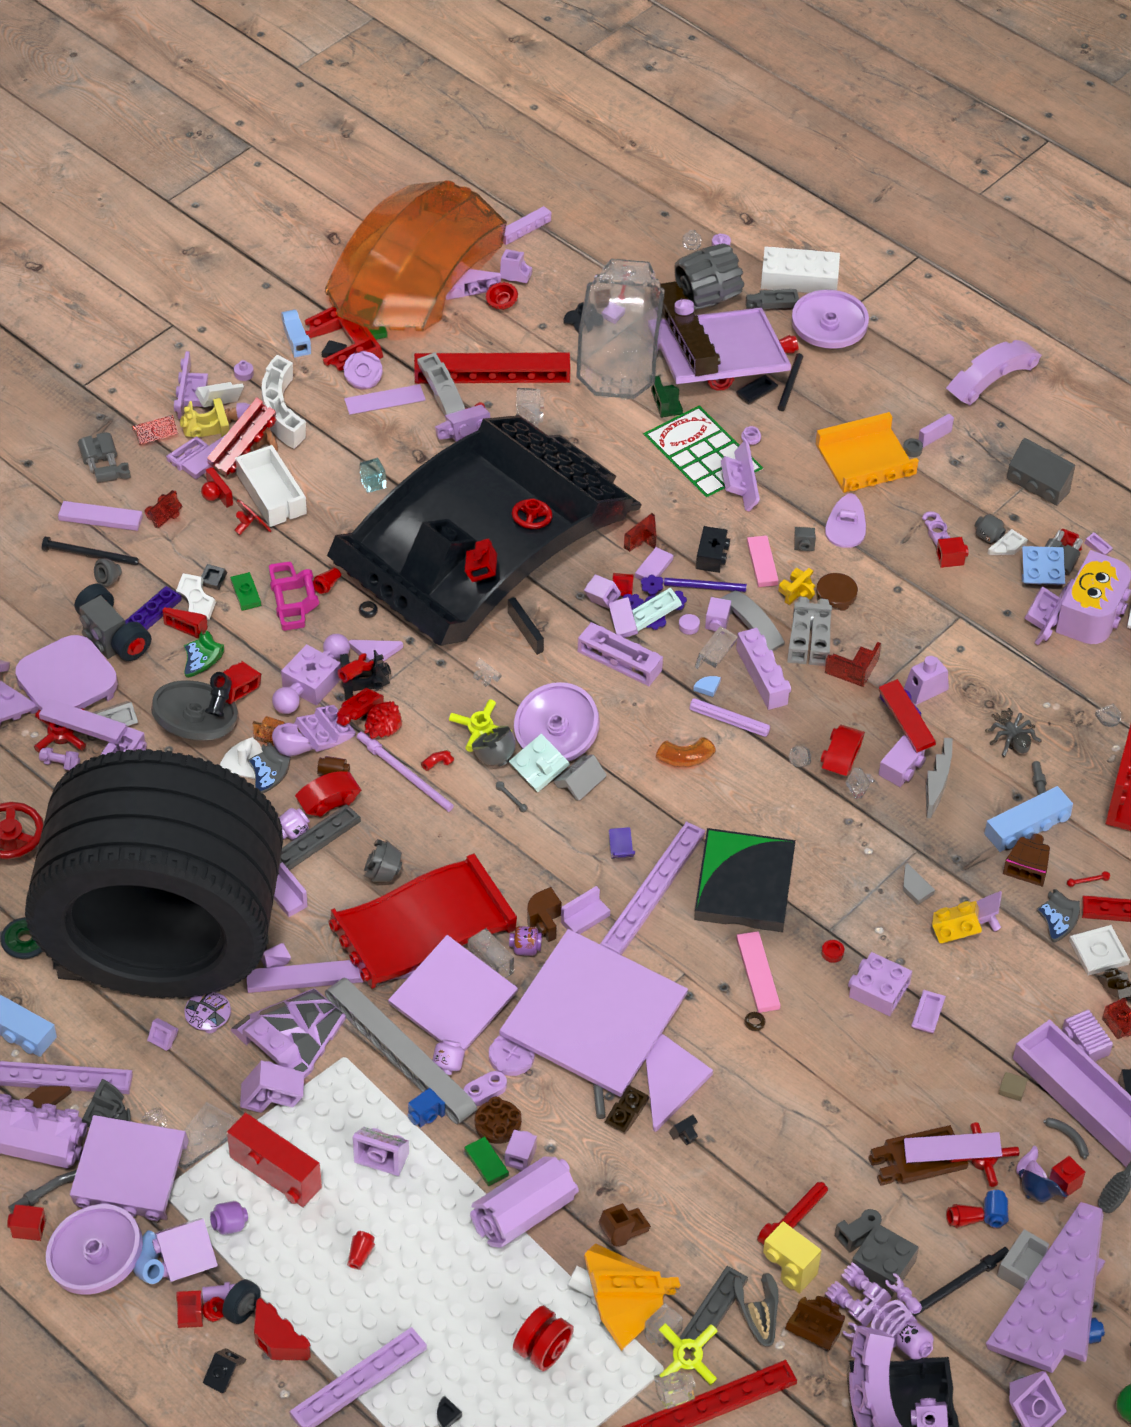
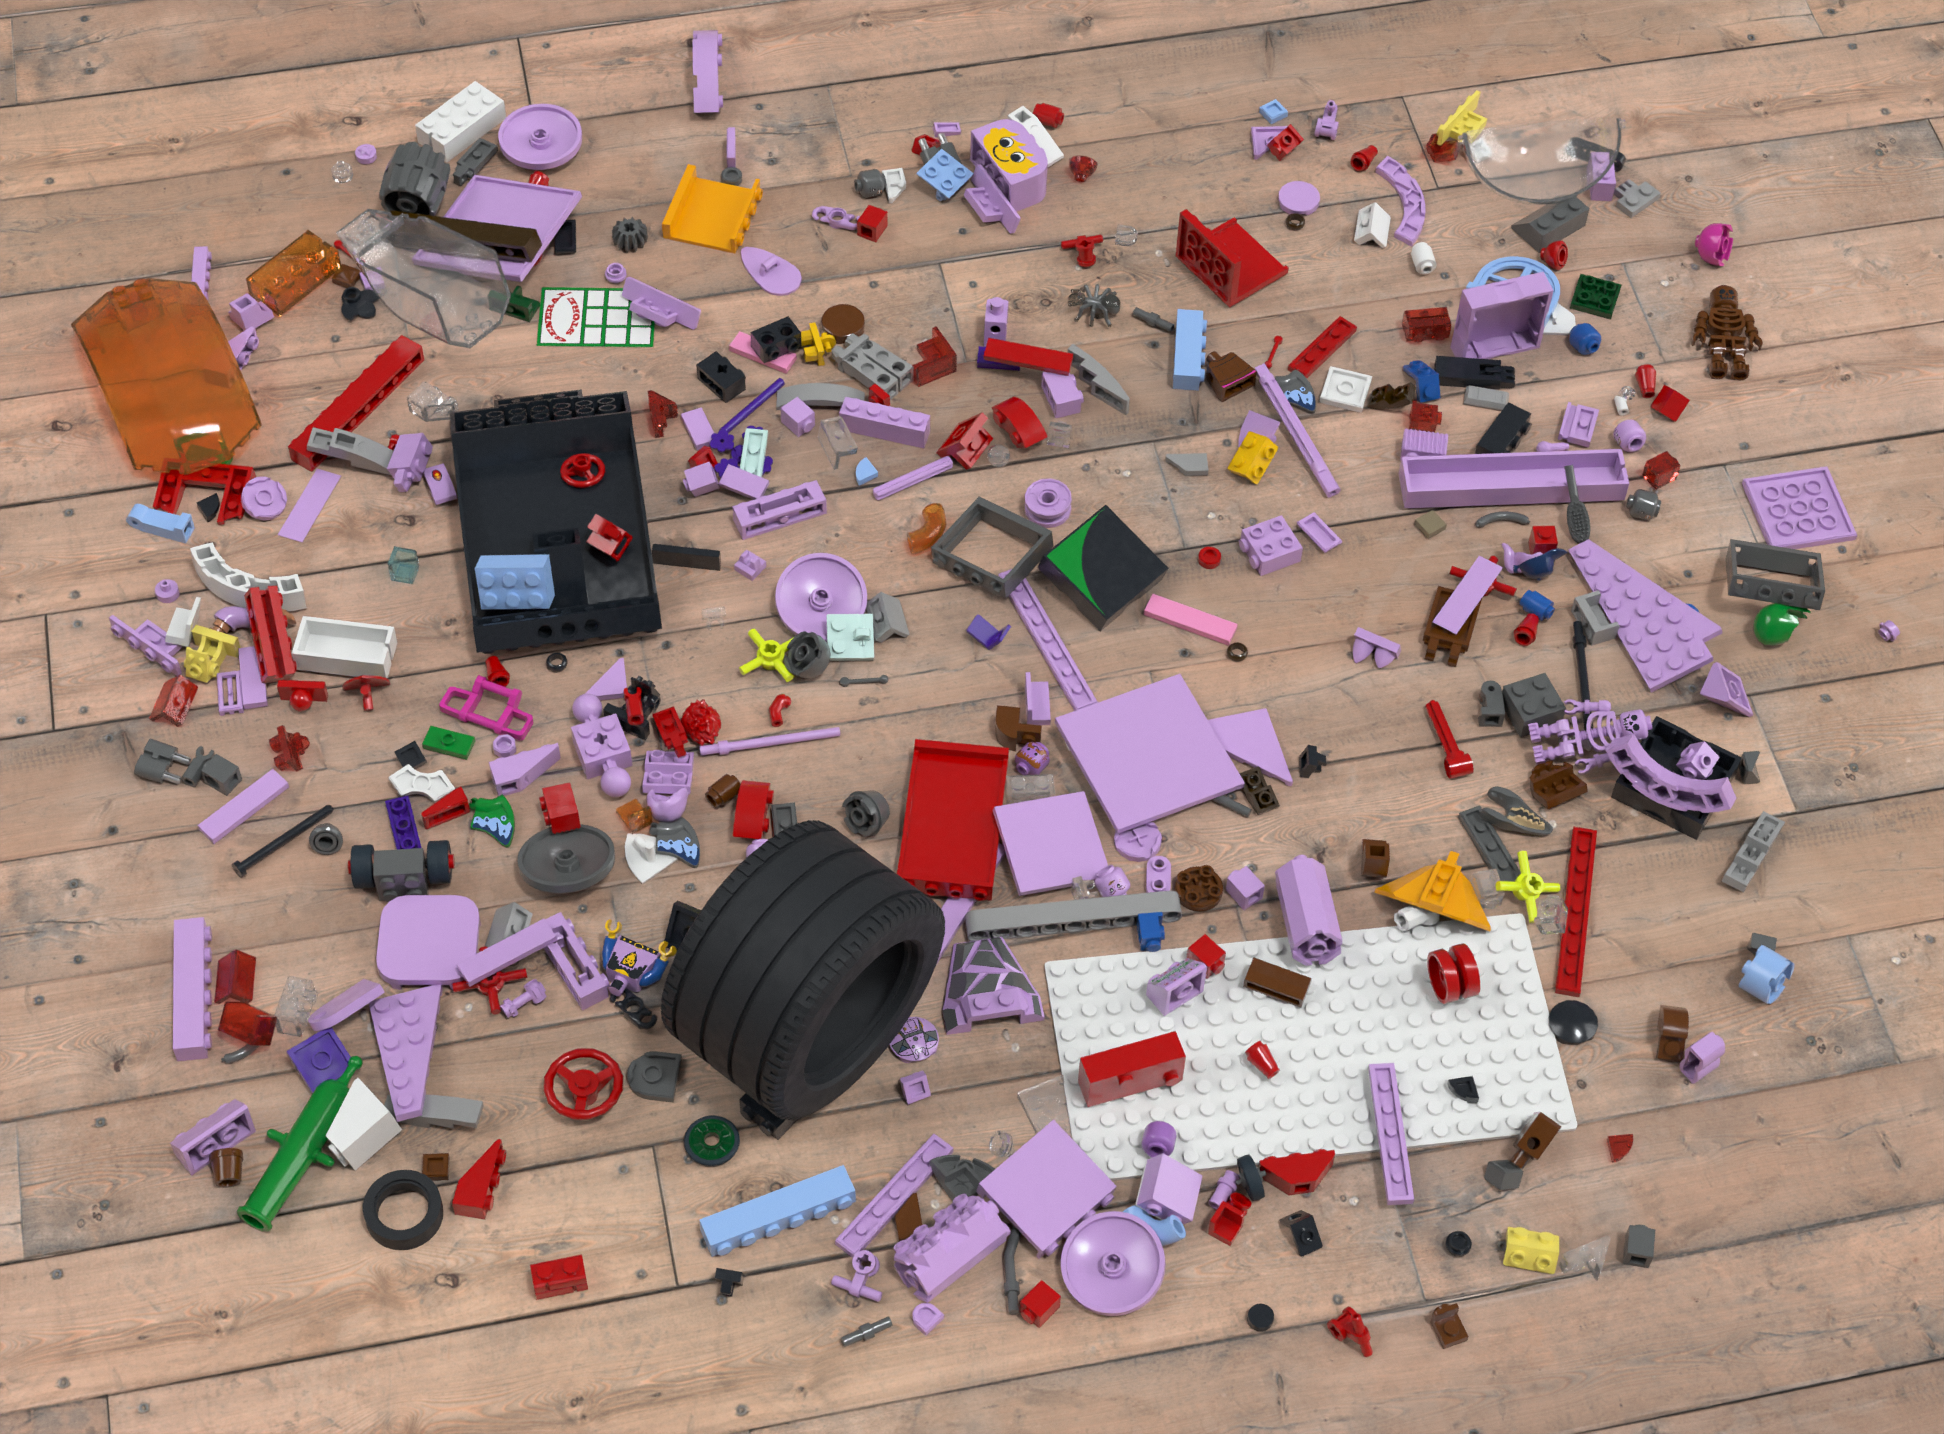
camera: 55 degrees left, 5 degrees up
(113, 487) = (221, 774): none -> dark grey brick
(124, 1383) = (1260, 1317): none -> black tile
(218, 694) = (572, 825): black connector -> none
(253, 643) = (520, 770): none -> lavender slope
(267, 622) = (504, 746): none -> lavender tile
(271, 1084) = (1045, 1032): lavender brick -> none
(393, 533) = (514, 581): none -> light blue brick
(426, 1040) = (1080, 889): none -> clear tile
(427, 1156) = (1209, 953): none -> red brick
(444, 1220) = (1277, 982): none -> reddish brown piece
(486, 1161) = (1233, 920): green tile -> none
(501, 295) = (274, 343): red hat -> none
(555, 667) = (749, 565): none -> lavender tile
(566, 265) = (293, 273): none -> clear orange piece
(684, 307) = (442, 217): lavender tile -> none
(689, 624) = (786, 443): lavender tile -> none
(700, 773) = (1006, 520): none -> dark grey window
(774, 558) = (776, 339): none -> black brick
(781, 652) = (878, 395): none -> red plate
(783, 813) = (1048, 502): none -> lavender wheel
(790, 382) = (586, 217): black bar -> none
(793, 421) = (629, 234): none -> dark grey gear
(793, 730) = (967, 441): none -> red bracket
(794, 1254) = (1495, 758): light yellow brick -> none
(804, 539) = (765, 309): dark grey bracket -> none
(843, 1105) = (1367, 641): none -> lavender tile
(1016, 938) = (1297, 431): none -> lavender piece
(1041, 472) = (846, 111): dark grey slope -> none
(1064, 692) = (1085, 247): none -> red piece

